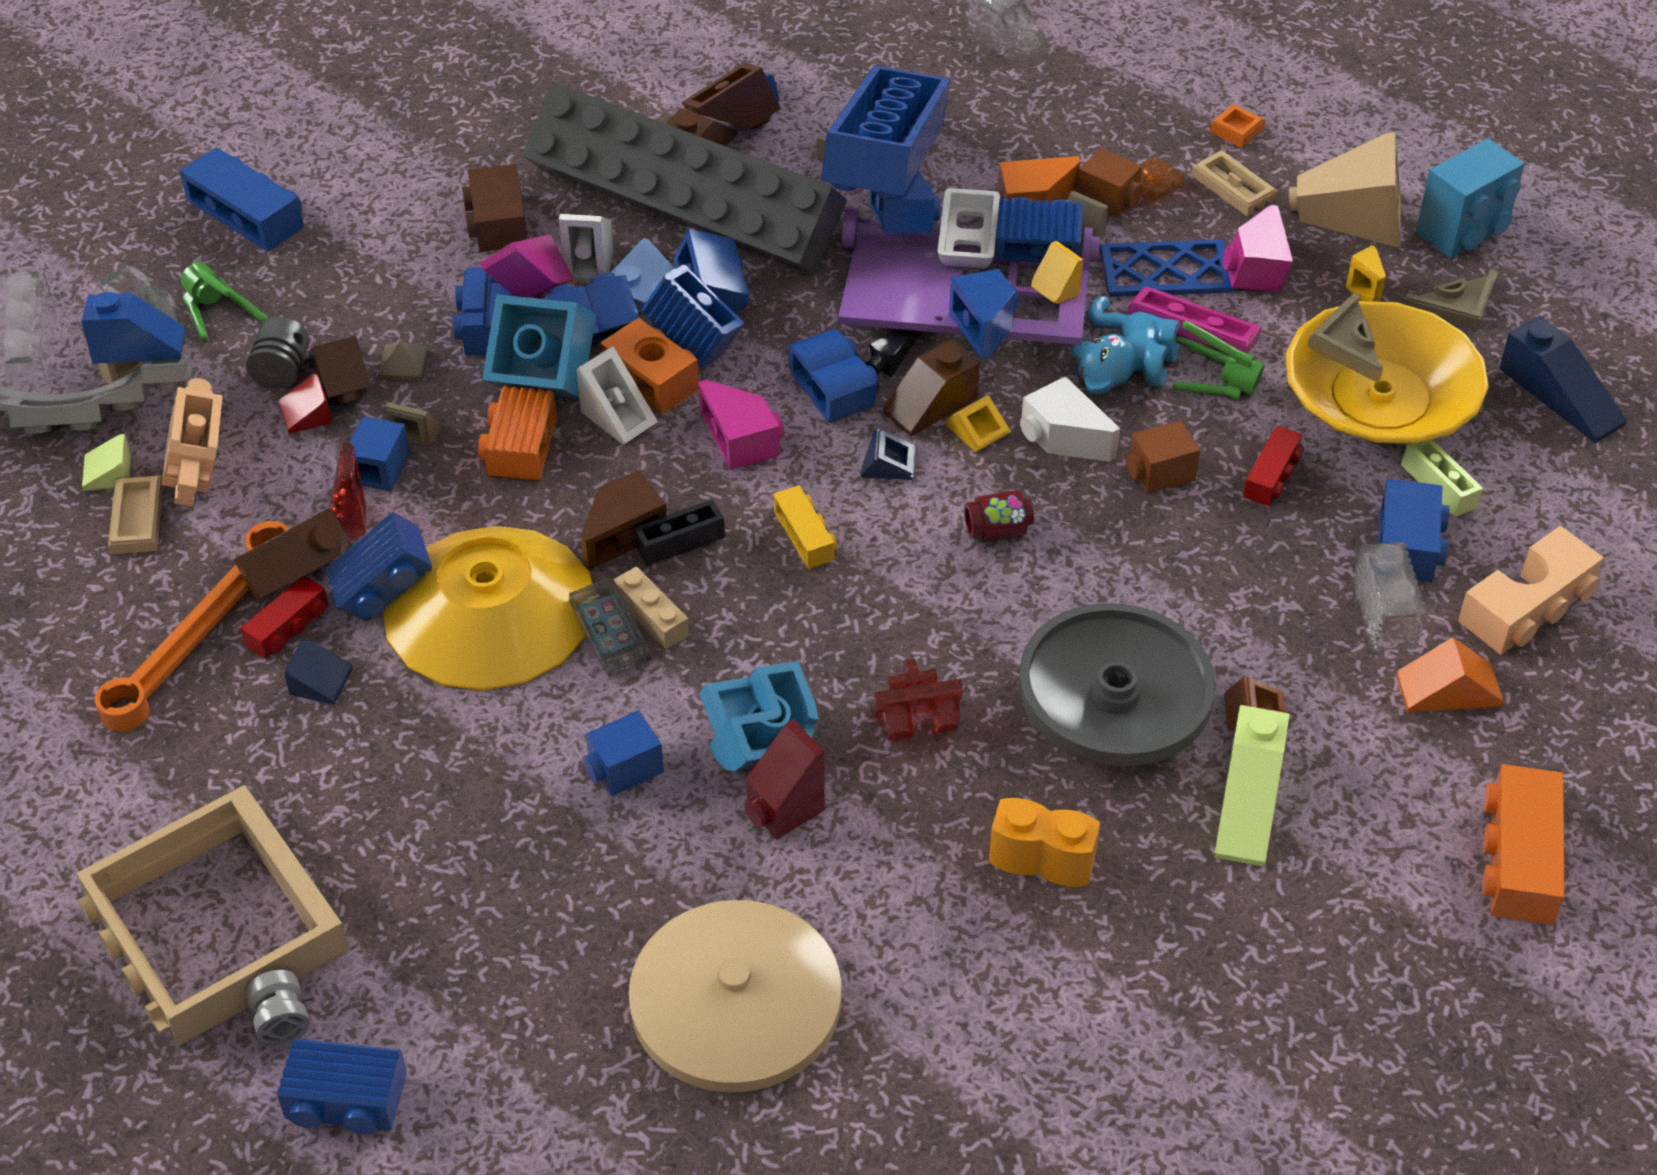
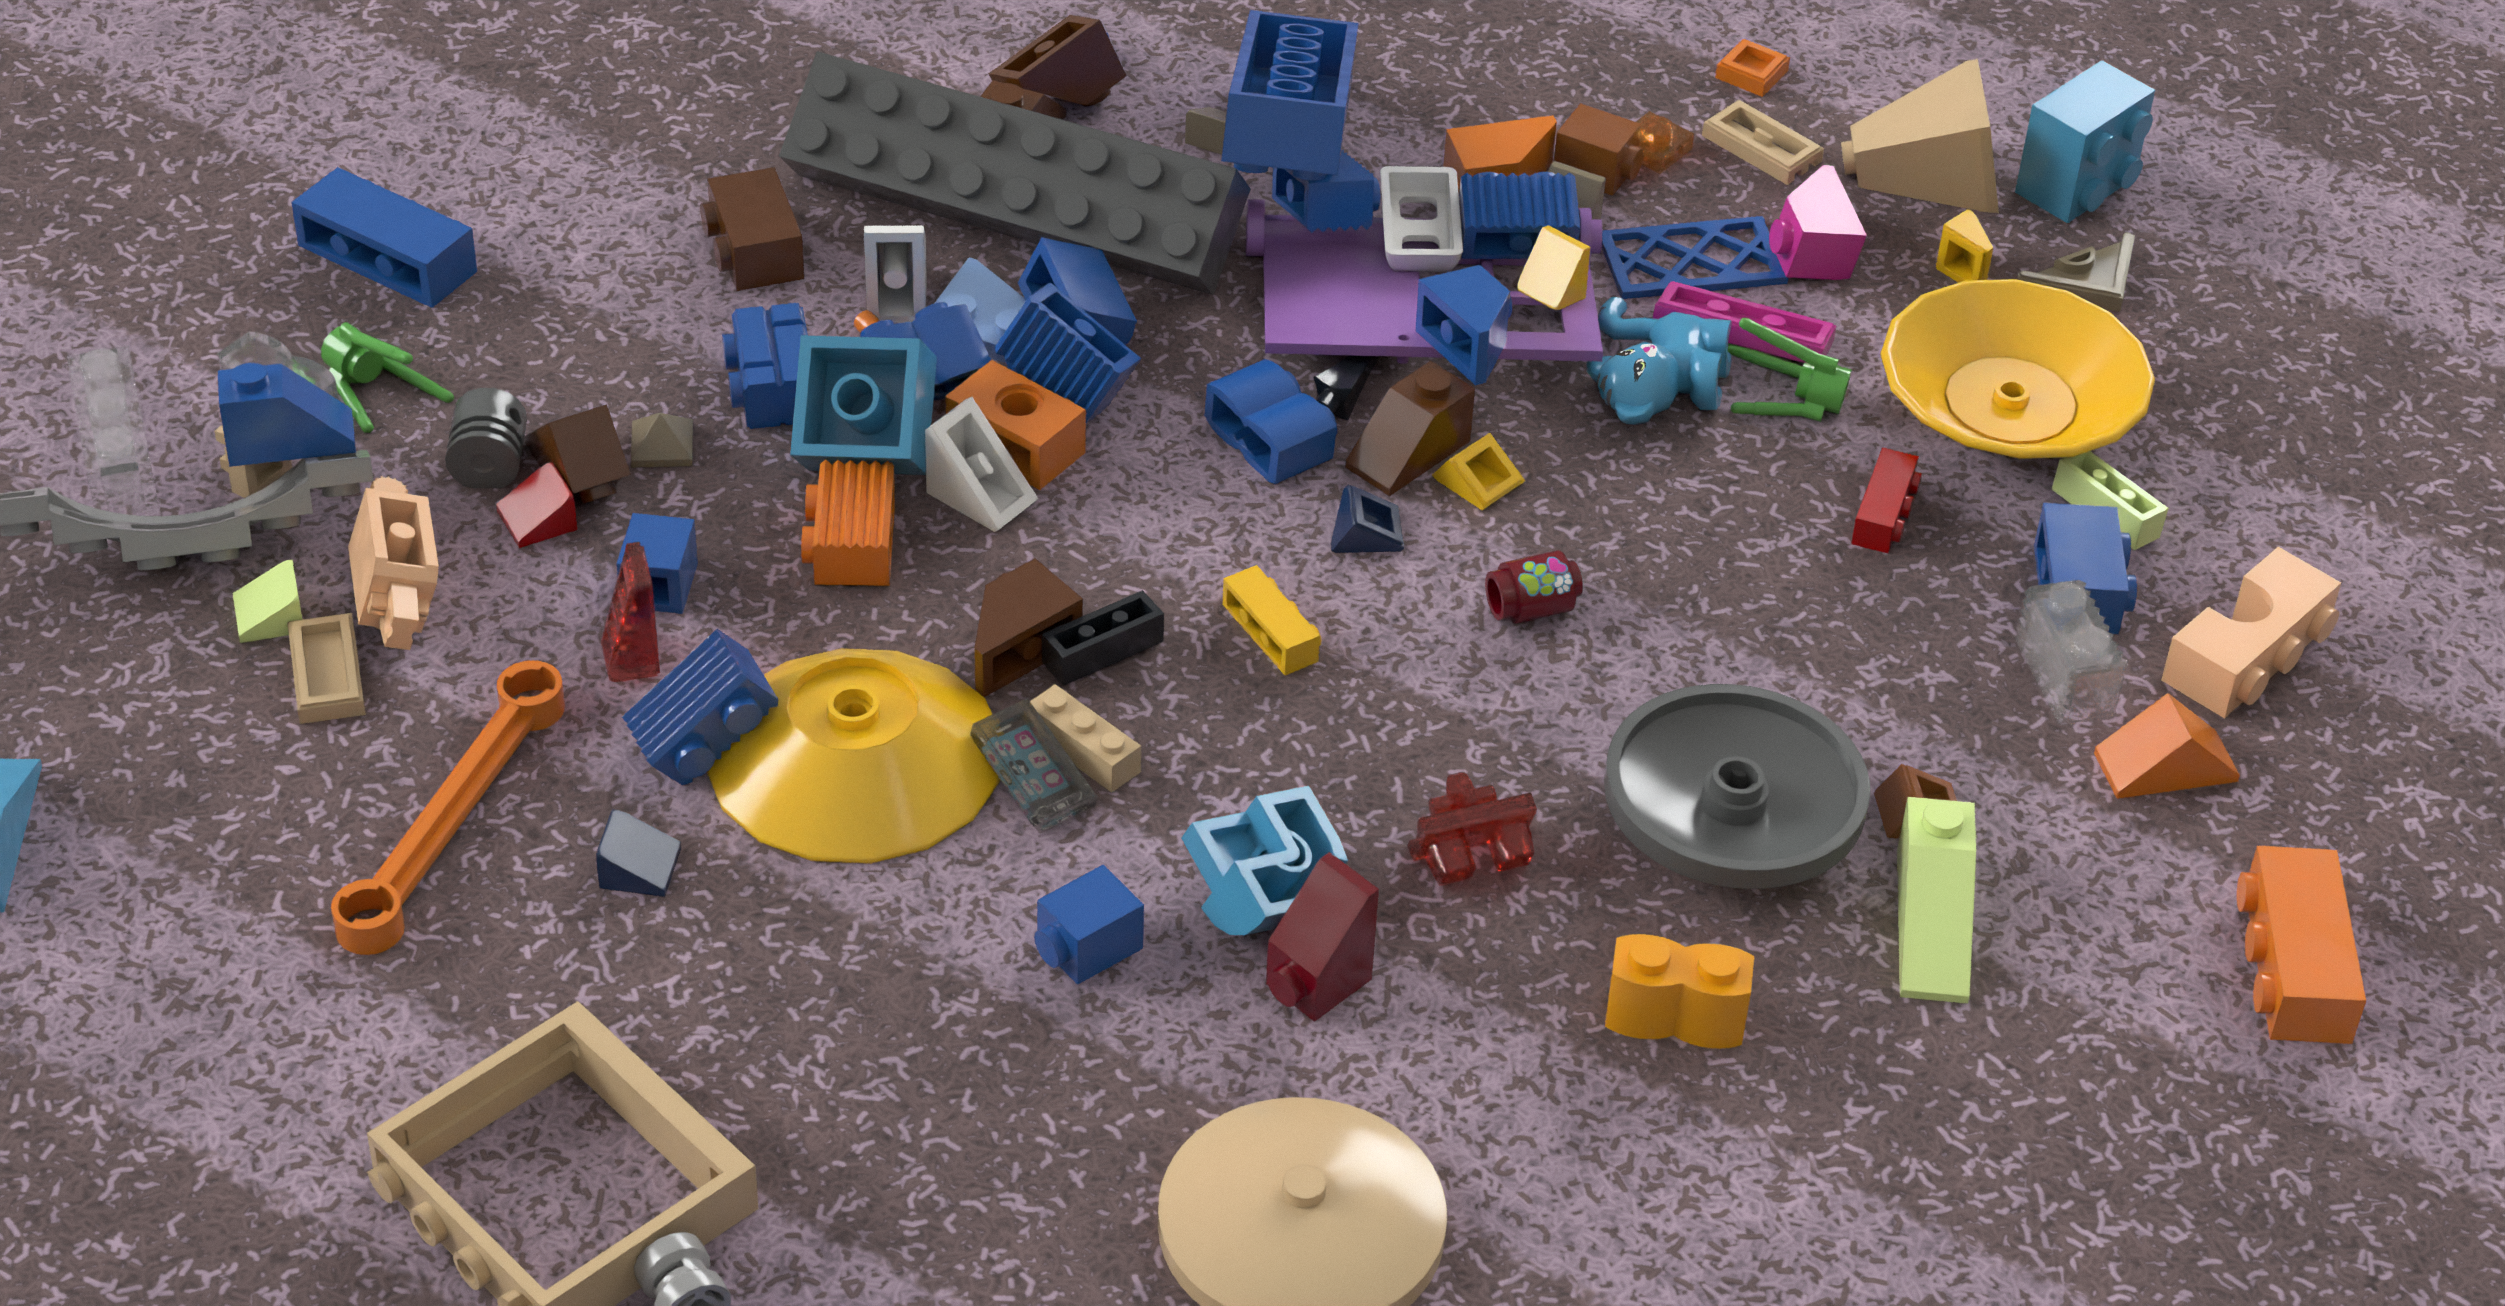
camera: 10 degrees left, 5 degrees down
(285, 617) = (573, 786): red piece -> none
(293, 553) = (575, 698): reddish brown slope -> none
(419, 424) = (712, 518): dark tan slope -> none
(528, 267) = (827, 300): dark pink slope -> none
(740, 424) = (1156, 491): dark pink slope -> none
(1068, 423) = (1605, 462): white slope -> none
(1163, 457) = (1739, 497): dark orange brick -> none
(1348, 340) = (1963, 330): dark tan tile -> none
(1560, 377) = (2241, 364): dark blue slope -> none

